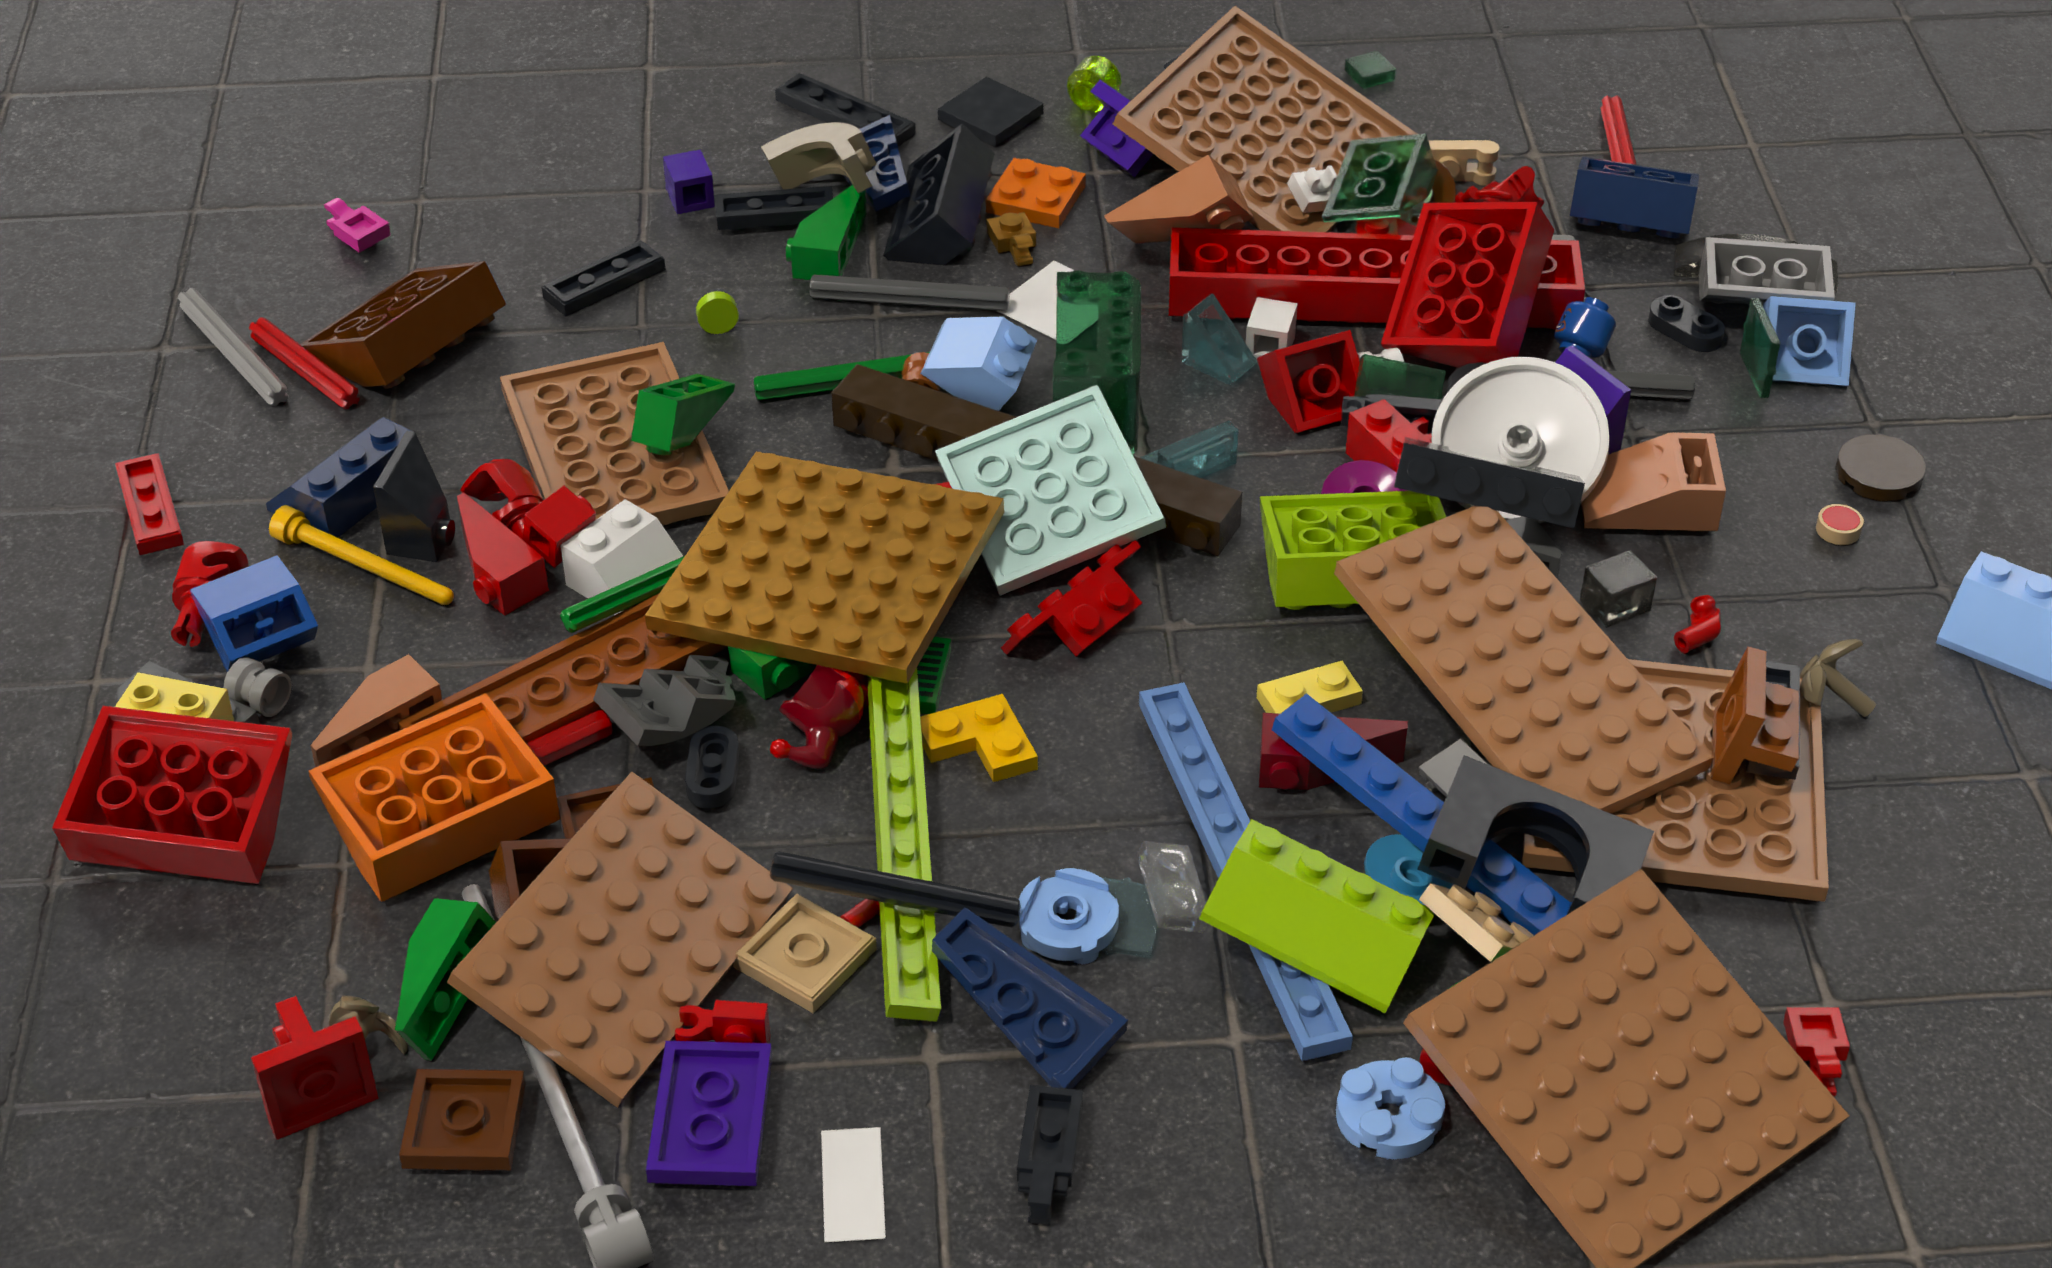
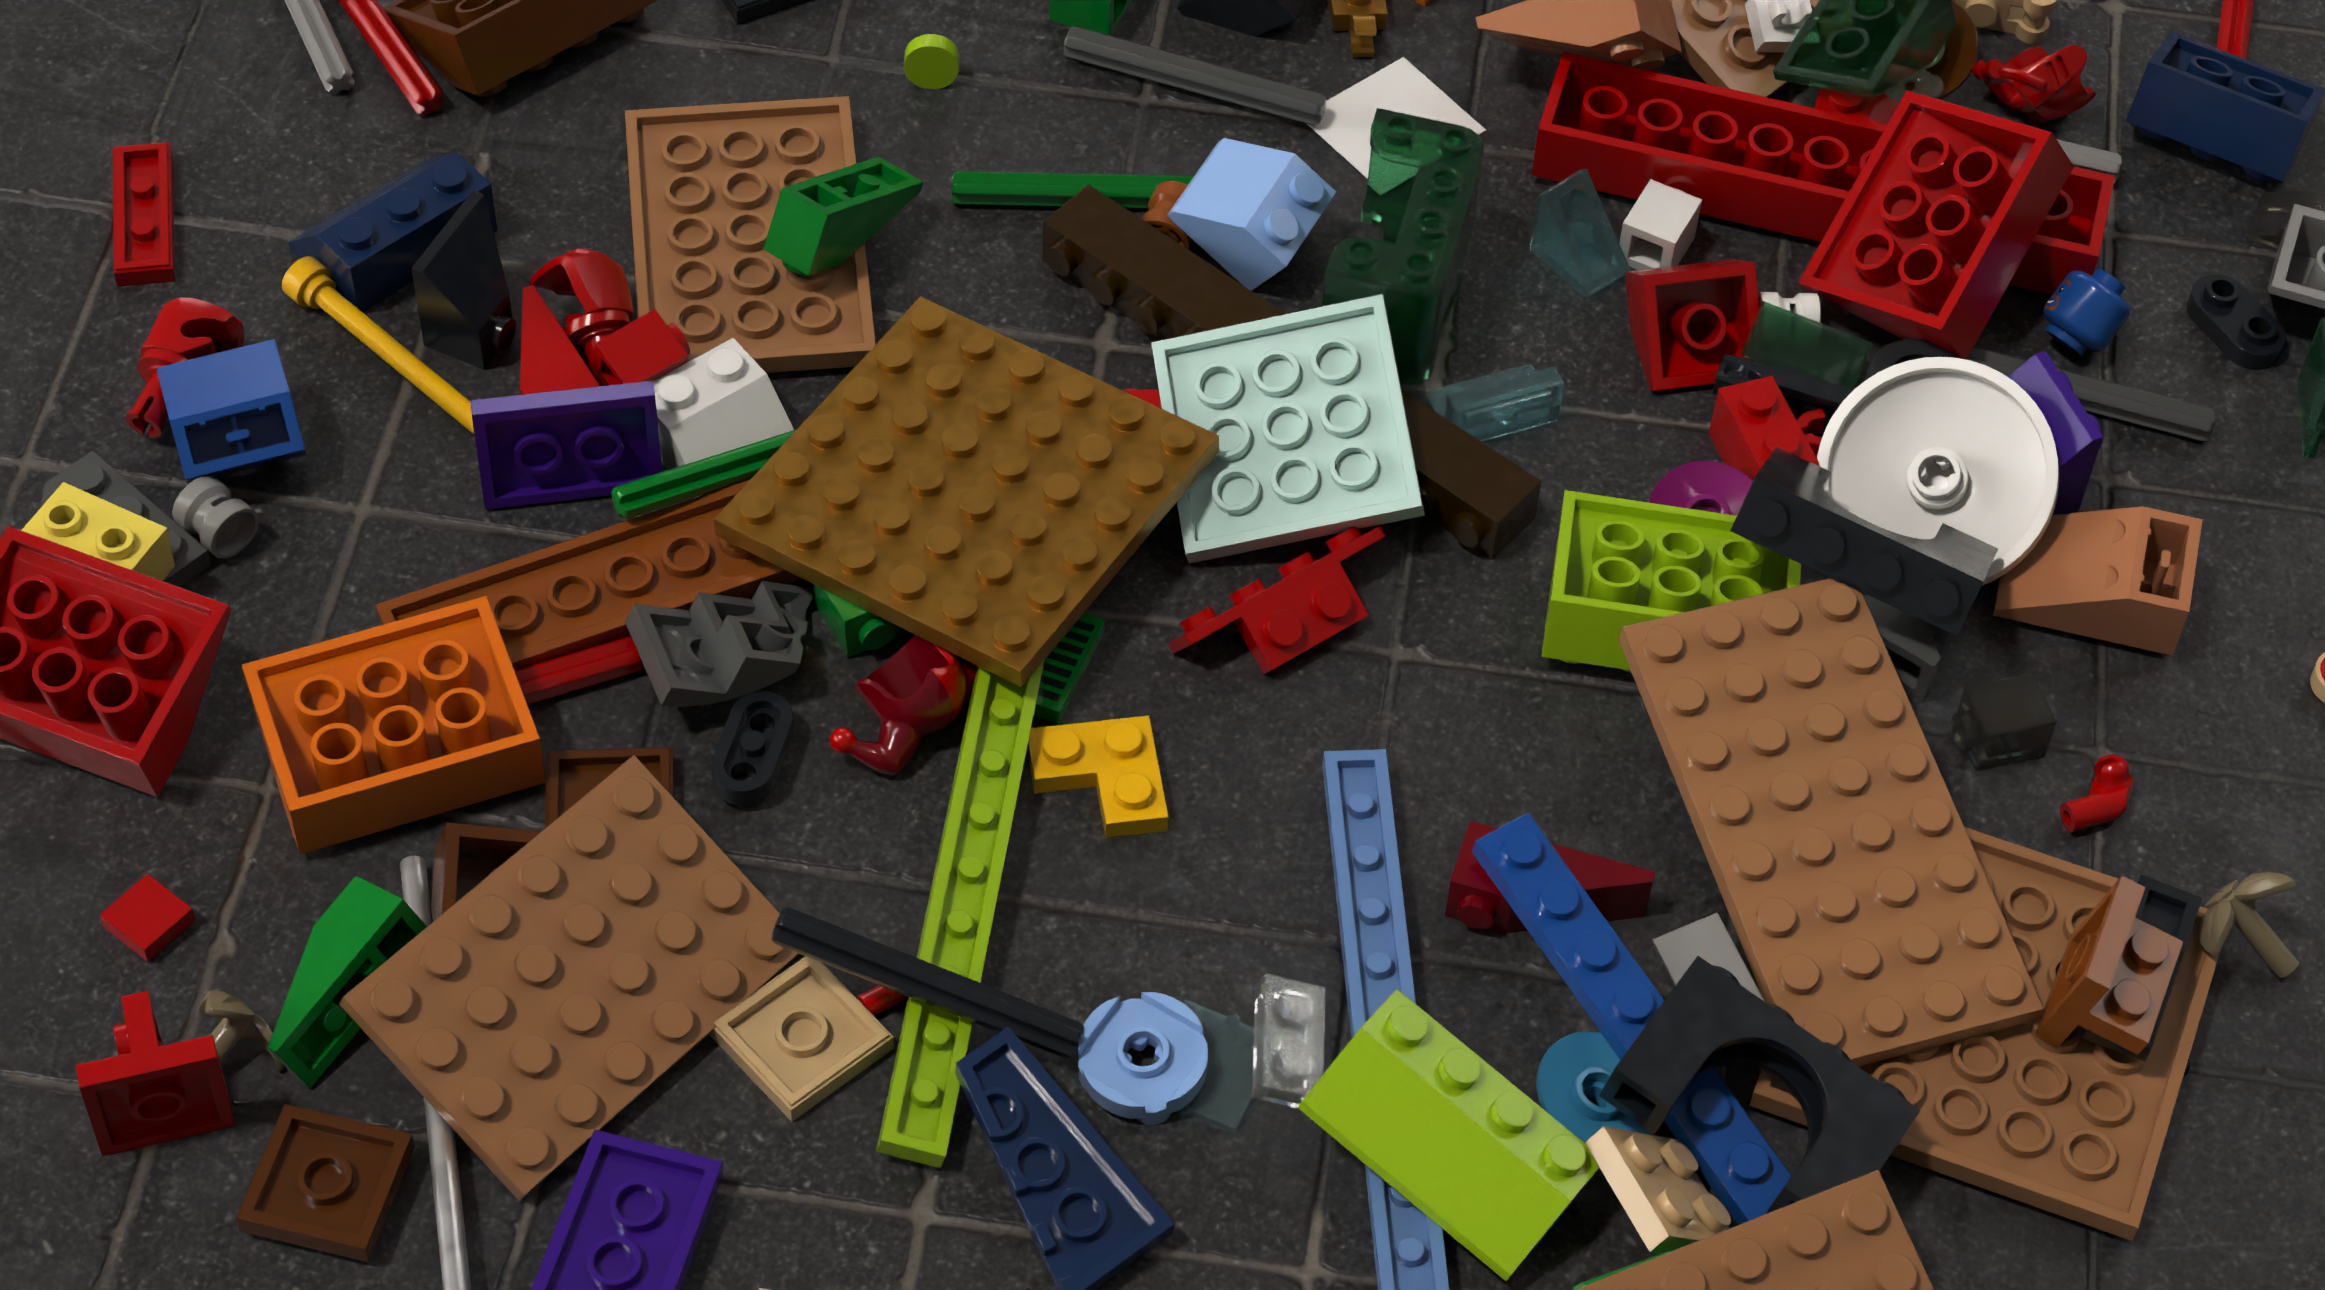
camera: 10 degrees right, 10 degrees up
(272, 966) = (147, 917): none -> red tile
(376, 709) = (347, 585): nougat slope -> none
(516, 588) = (565, 443): none -> dark purple plate
(725, 1023) = (676, 1122): red plate -> none
(1328, 685) = (1551, 792): light yellow plate -> none

